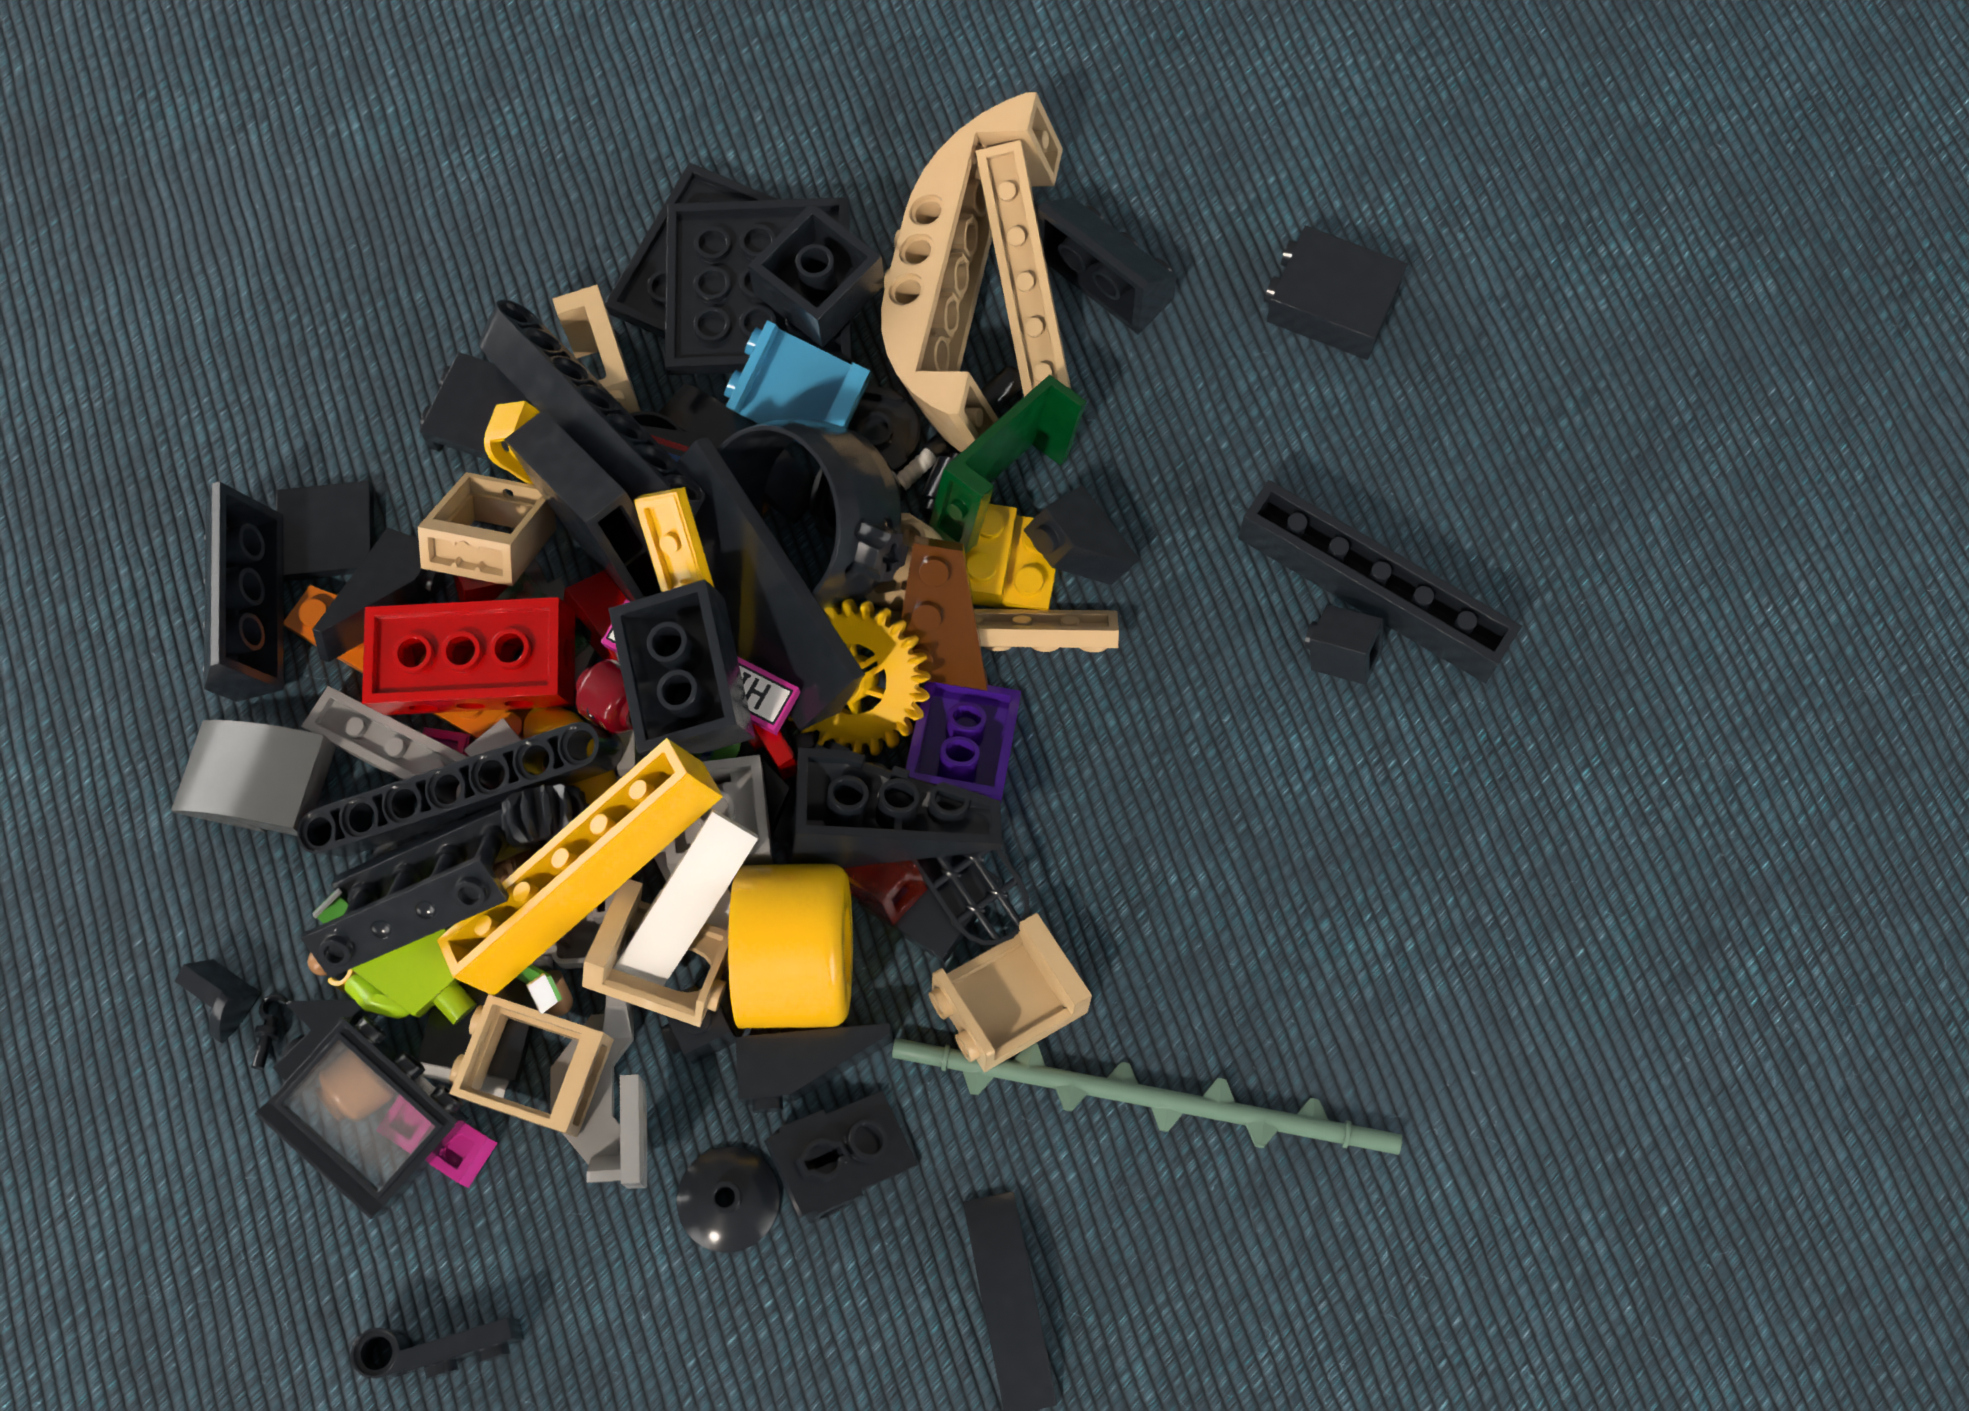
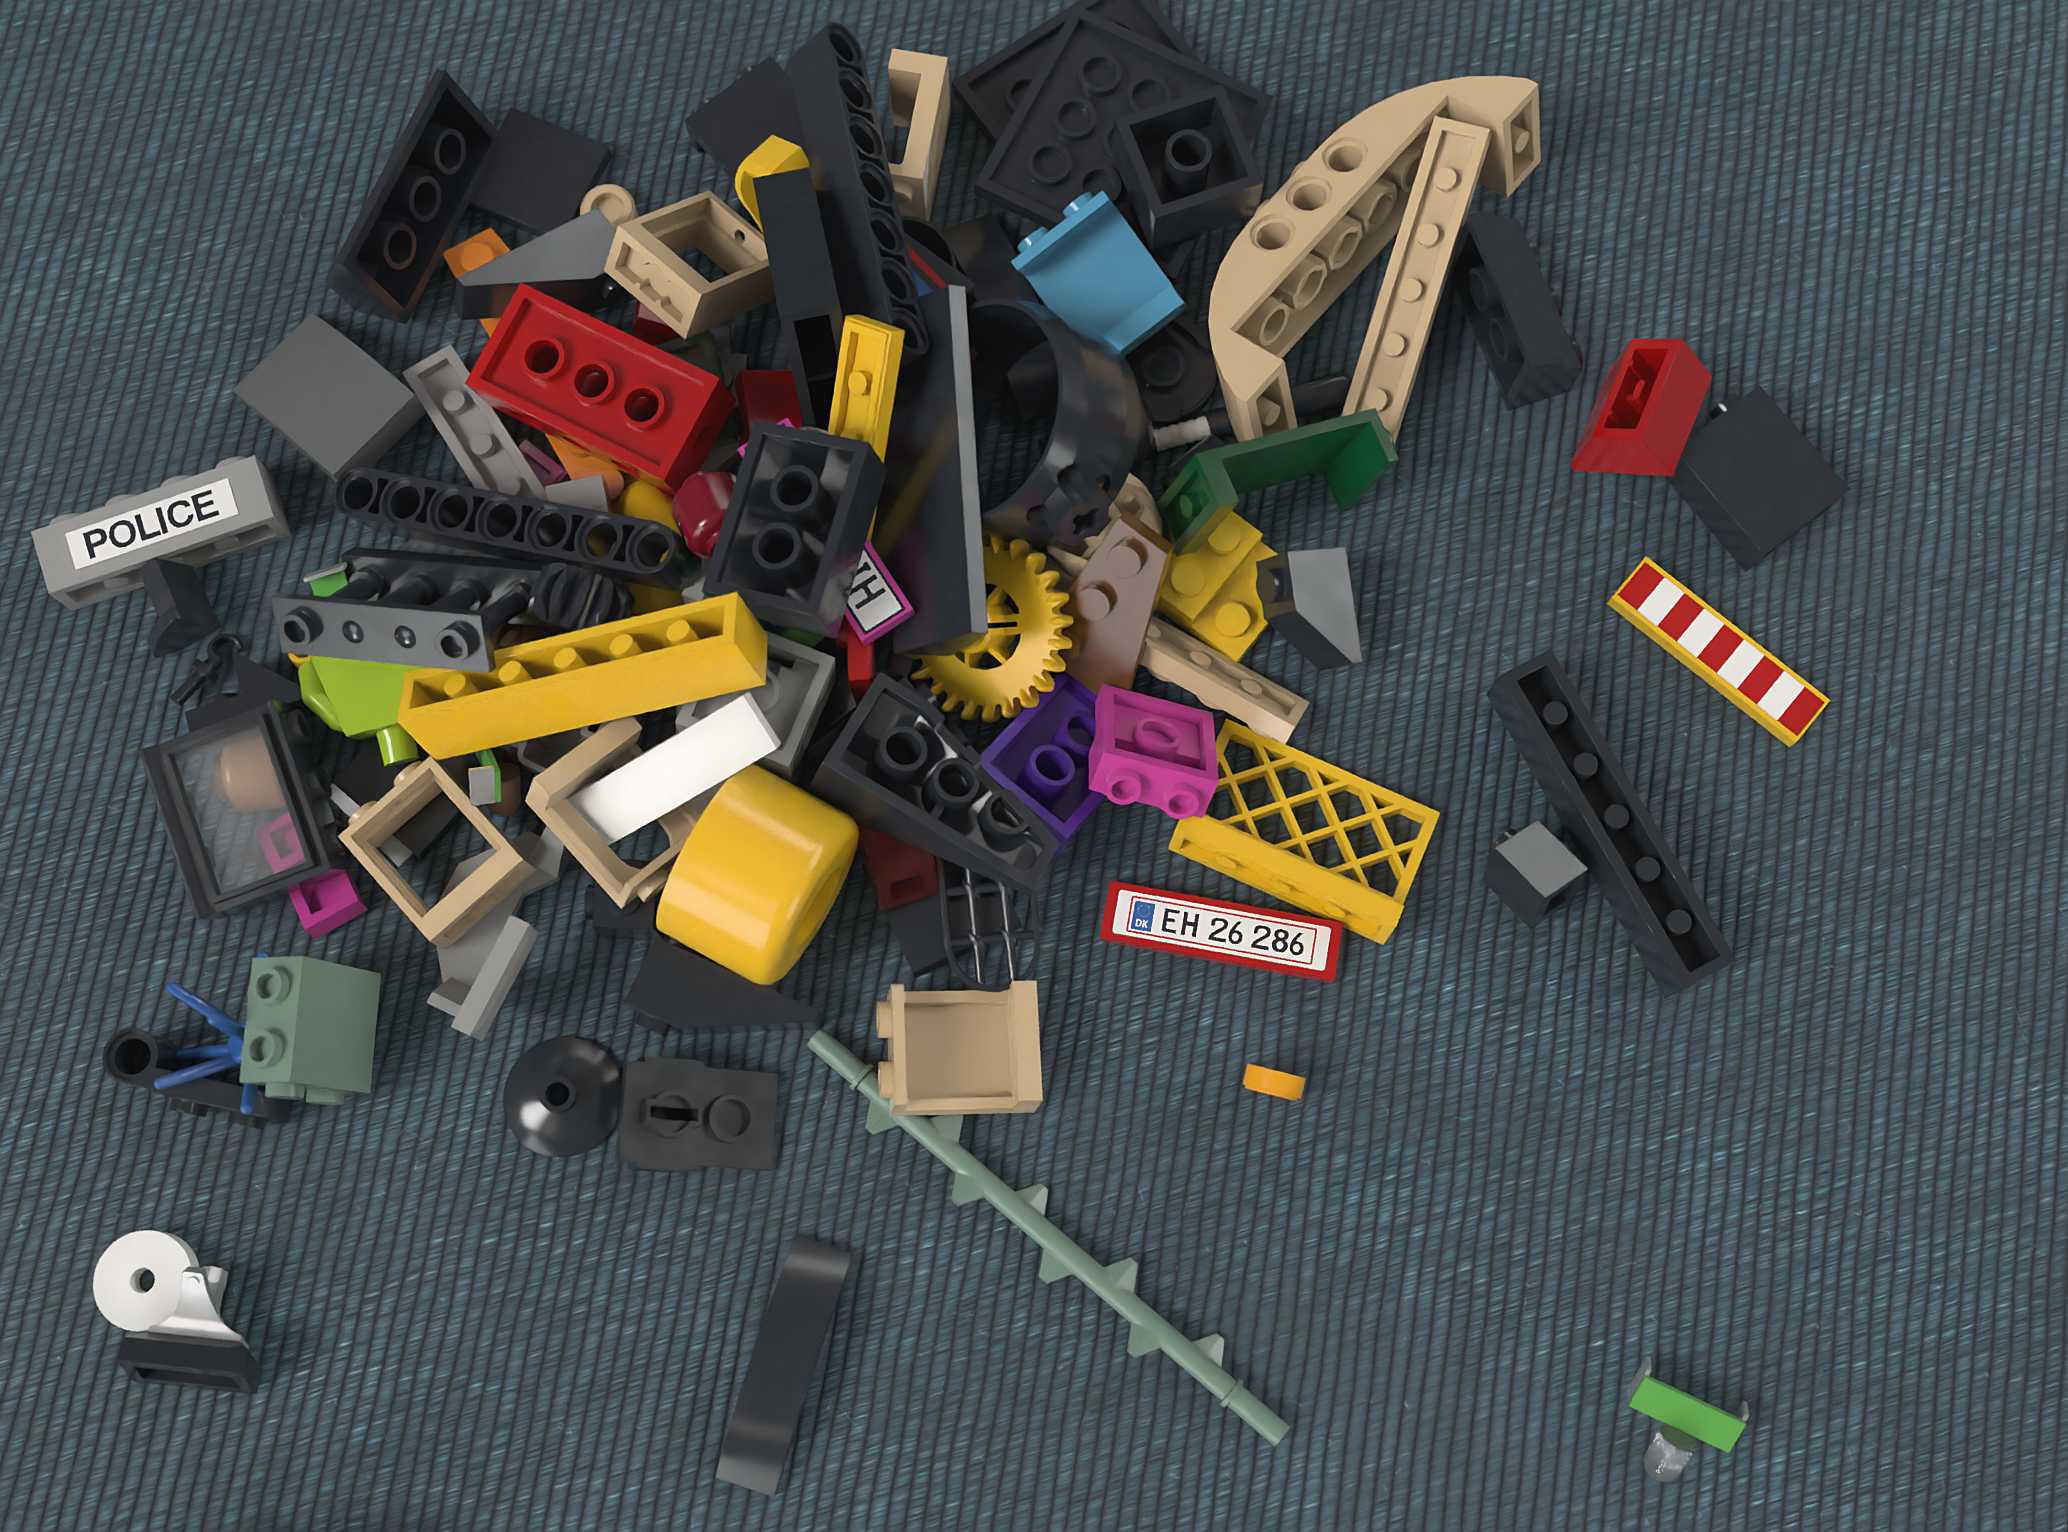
camera: 25 degrees right, 5 degrees up
(186, 928) = (181, 521): none -> light grey brick
(395, 518) = (612, 202): none -> tan tile
(462, 1293) = (229, 1053): none -> blue plant
(506, 1252) = (310, 1029): none -> sand green brick
(1028, 703) = (1153, 753): none -> dark pink plate
(1147, 808) = (1221, 932): none -> tile
(1164, 740) = (1299, 877): none -> yellow fence
(1235, 282) = (1644, 410): none -> red slope
(1248, 893) = (1273, 1082): none -> light orange tile
(1381, 424) = (1718, 652): none -> tile
(1670, 968) = (1683, 1418): none -> bright green piece

